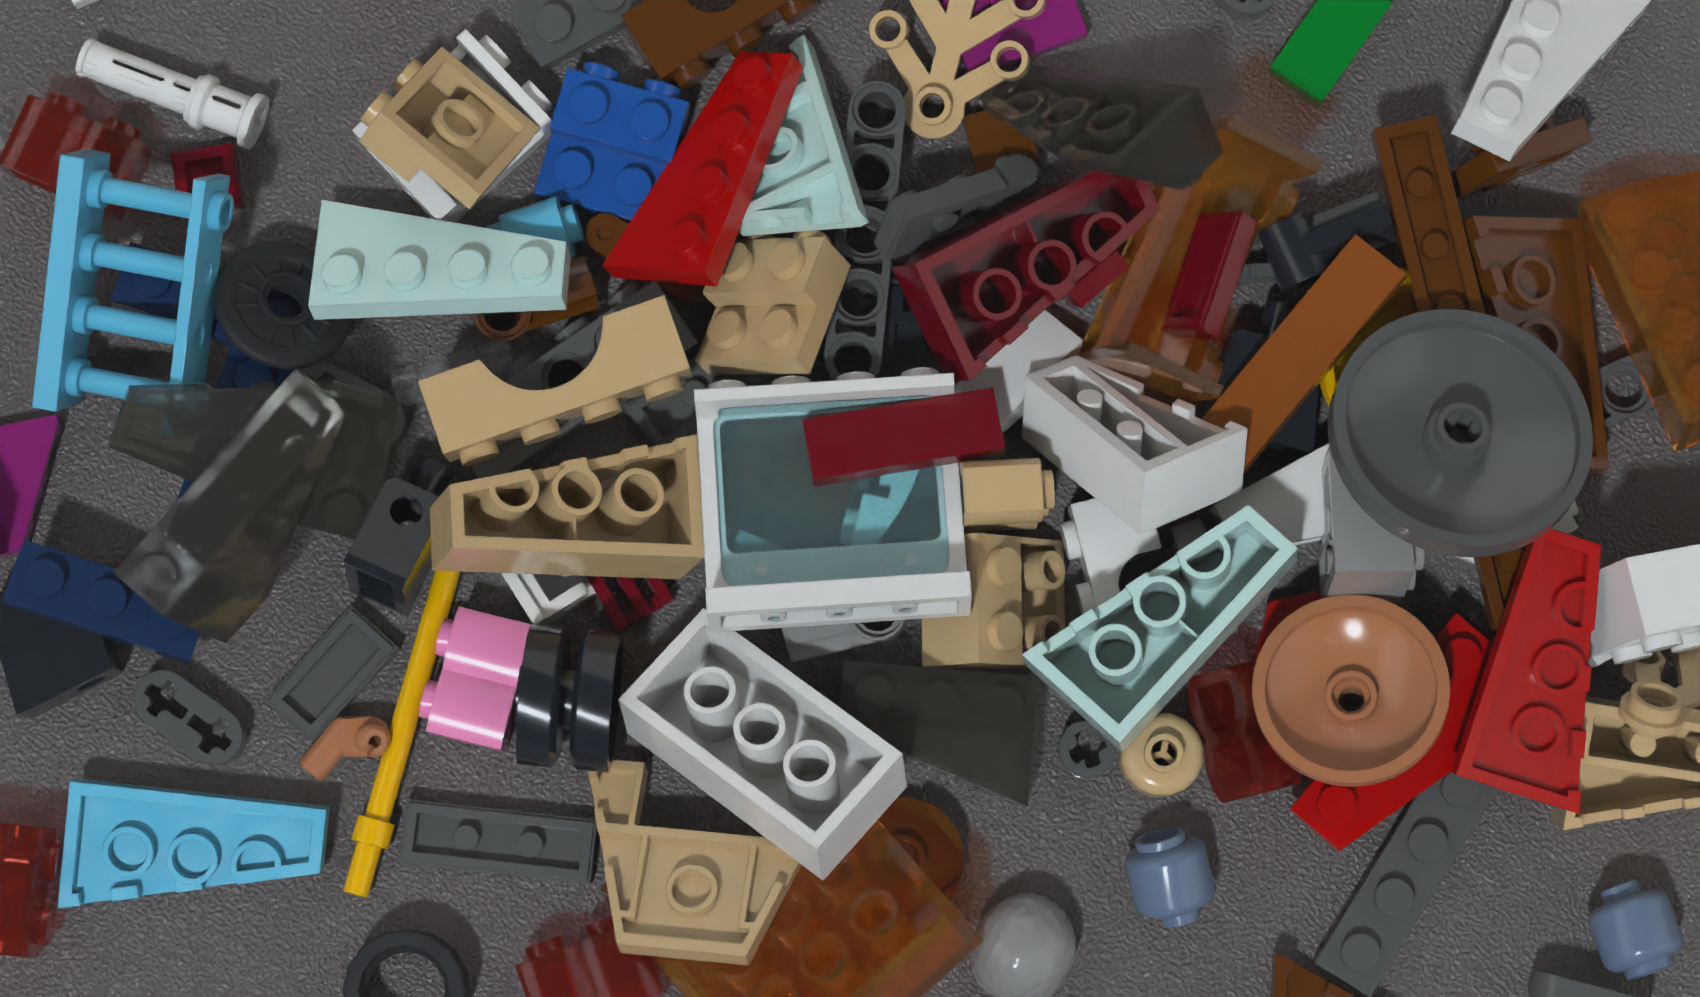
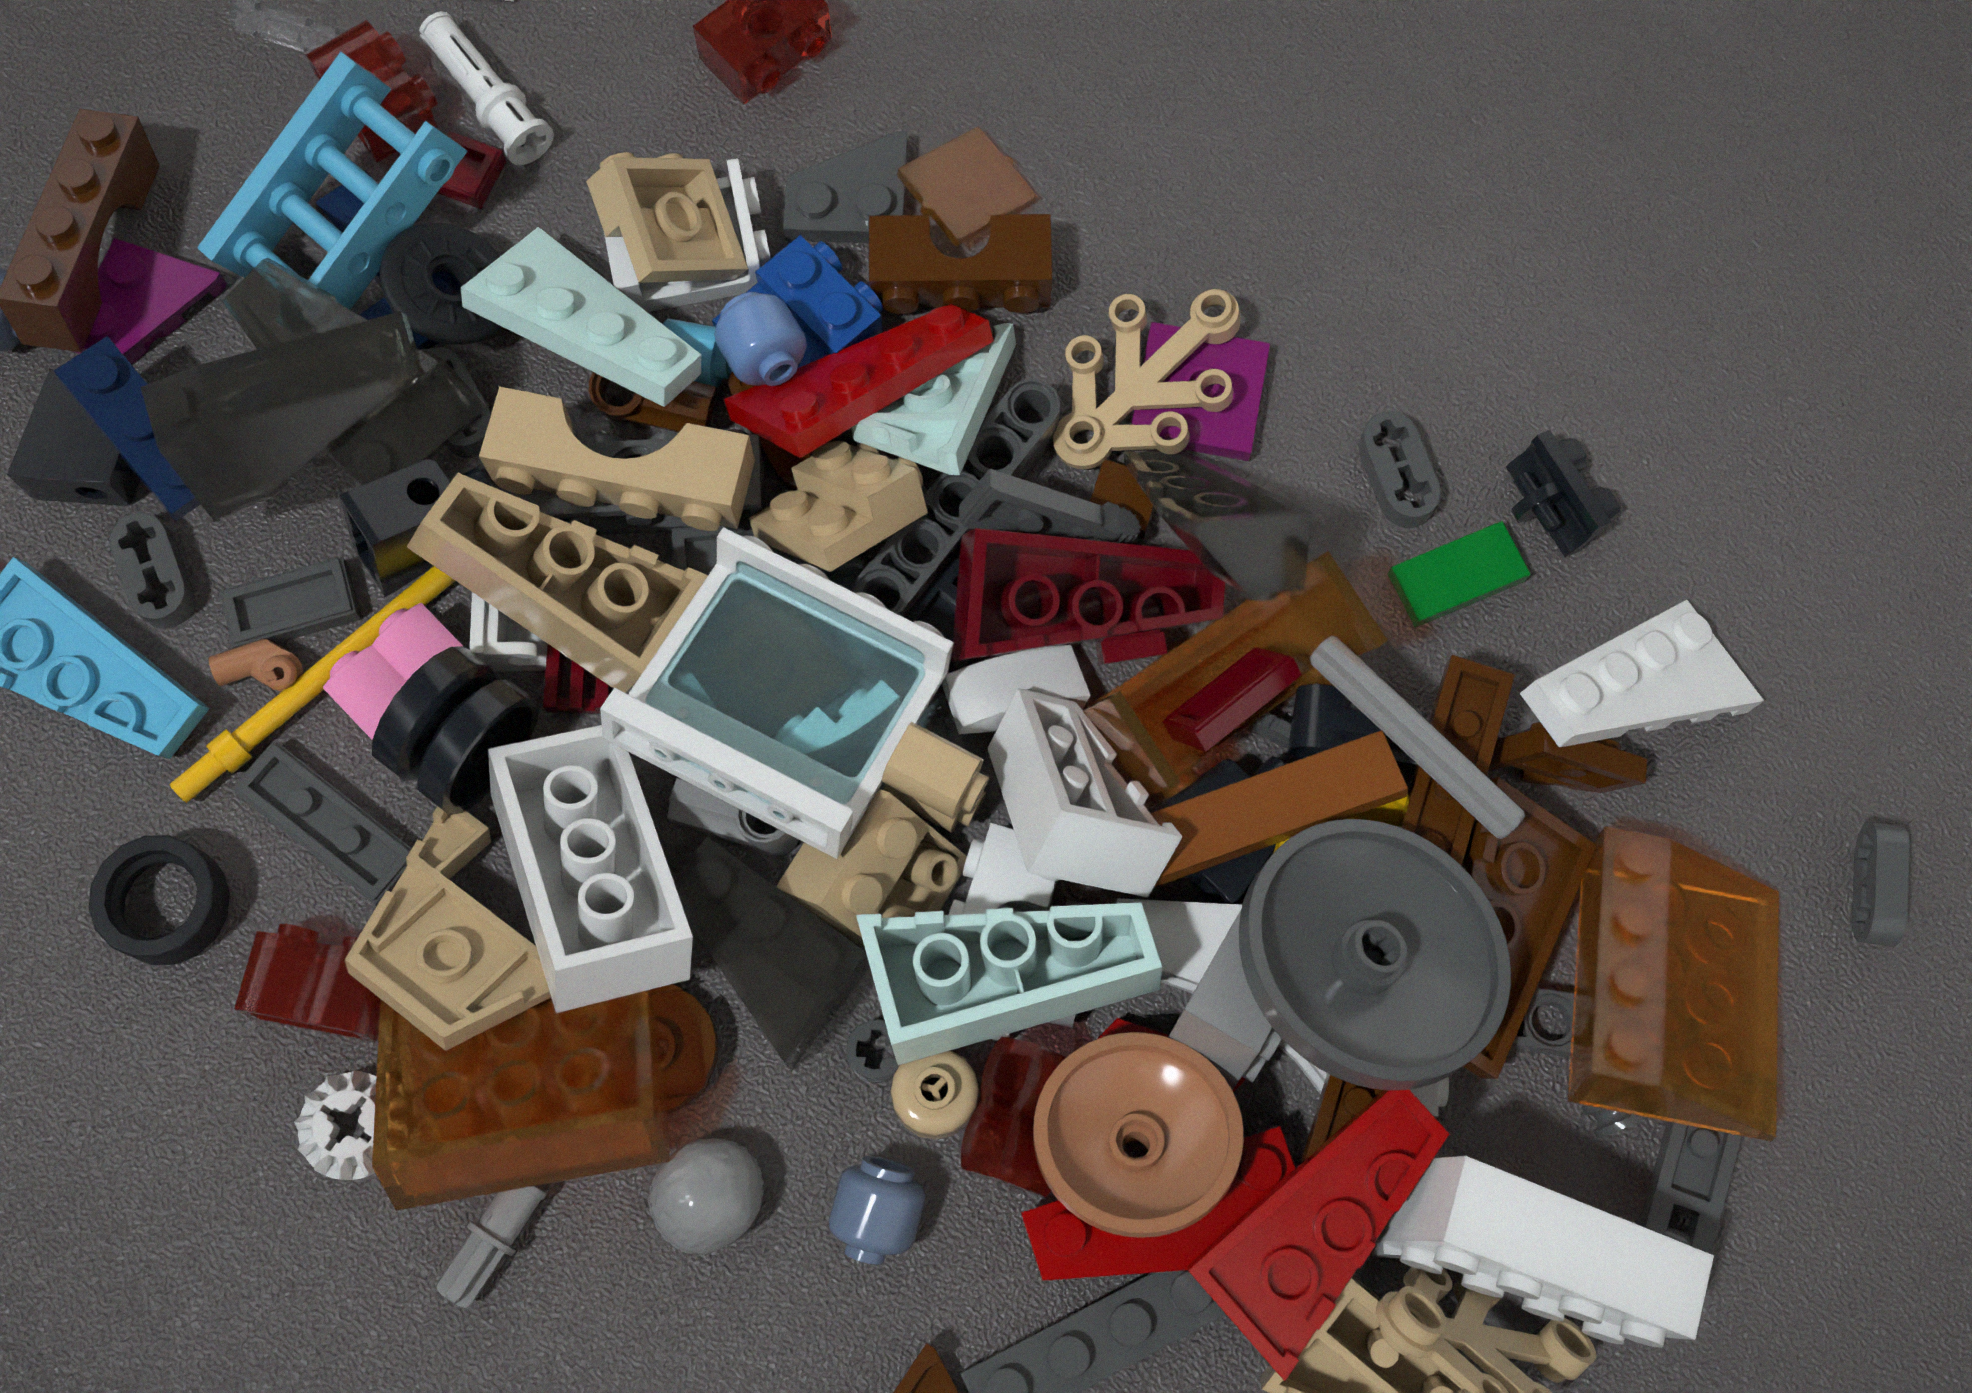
camera: 30 degrees right, 10 degrees down
(604, 194) = (760, 339): none -> medium blue head
(903, 437) = (878, 675): dark red tile -> none
(1387, 224) = (1417, 737): none -> light grey axle

